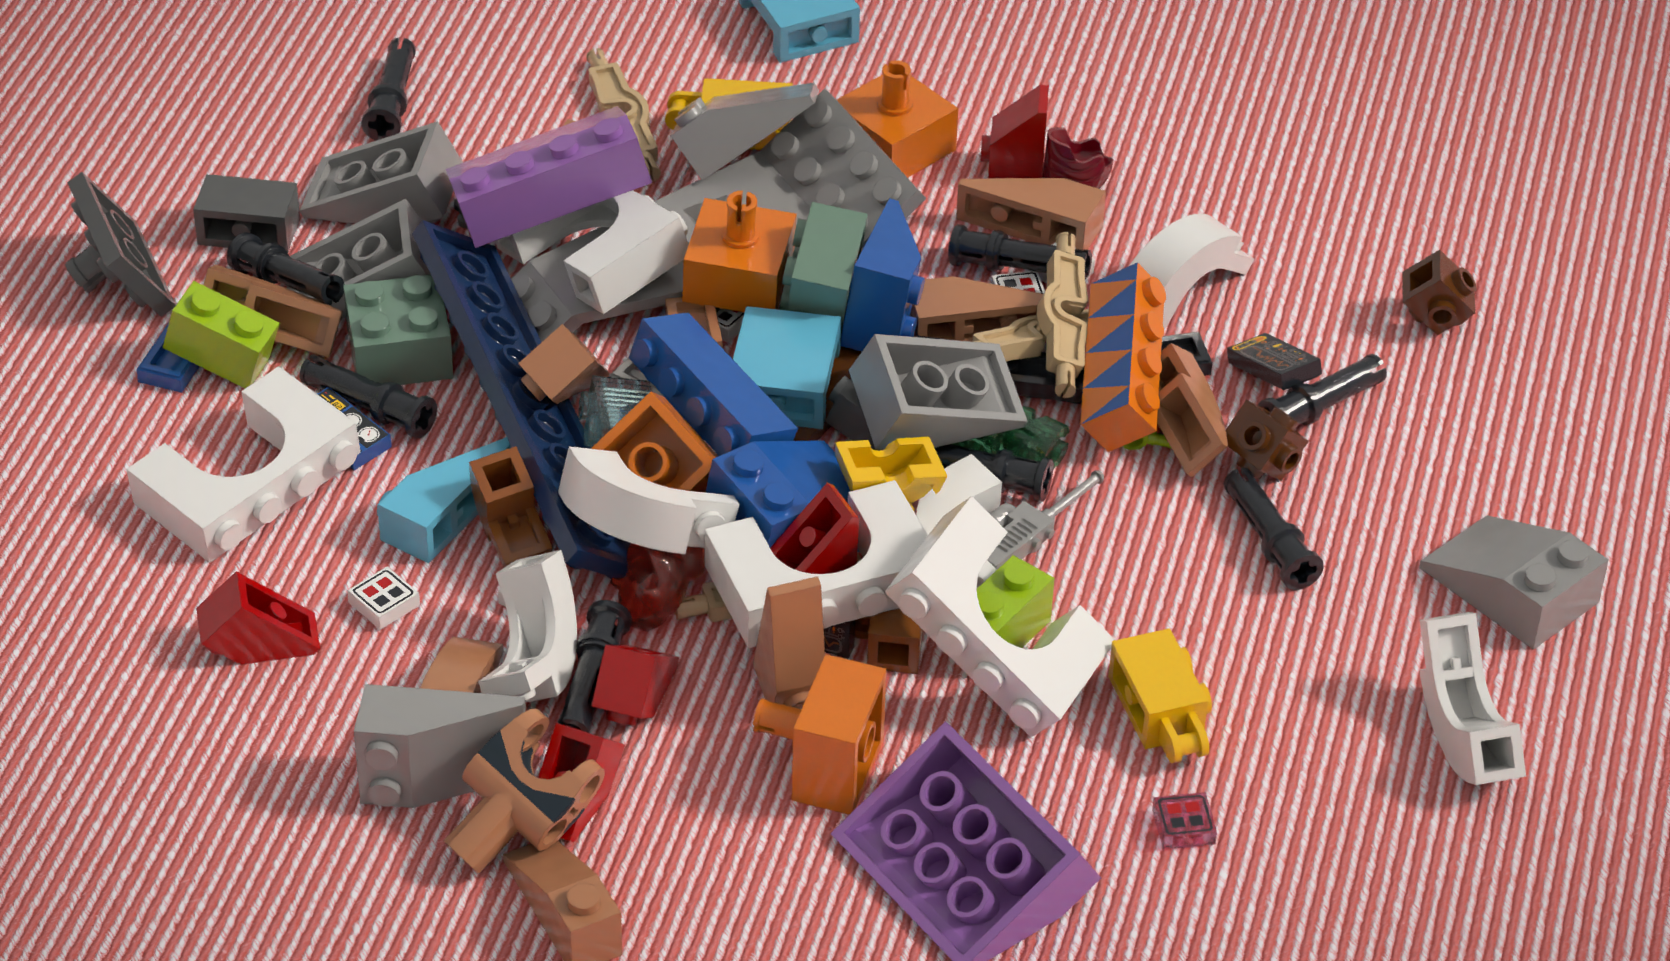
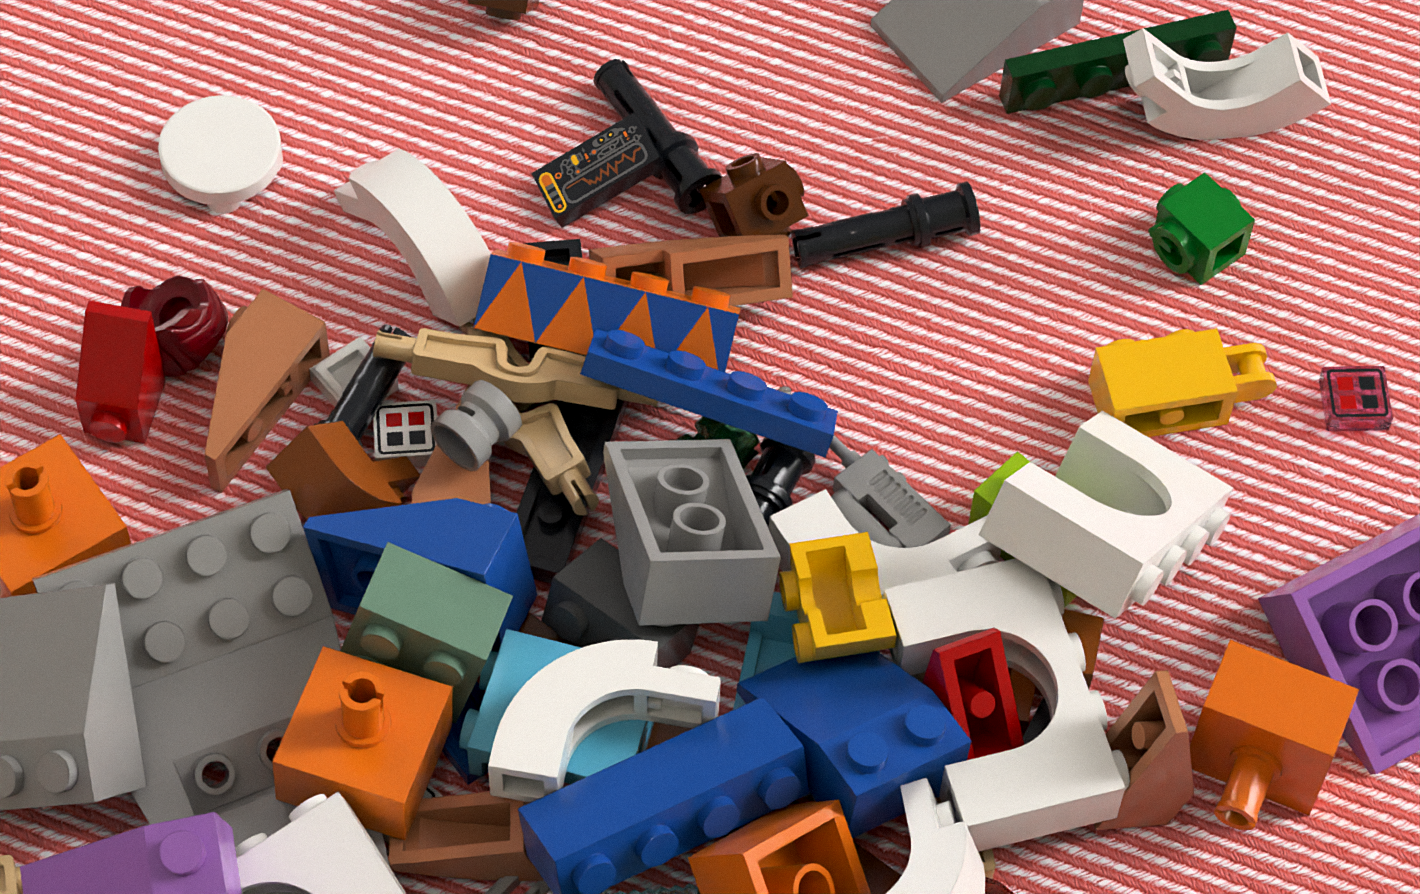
camera: 85 degrees left, 15 degrees up
(770, 330) = (583, 694): none -> white arch
(940, 228) = (335, 475): none -> dark orange brick
(1002, 285) = (476, 425): none -> light grey wheel
(1063, 407) = (729, 398): none -> blue plate
(1236, 178) = (220, 151): none -> white tile
(1322, 710) = (1200, 228): none -> green brick
(1507, 683) = (1099, 64): none -> dark green plate

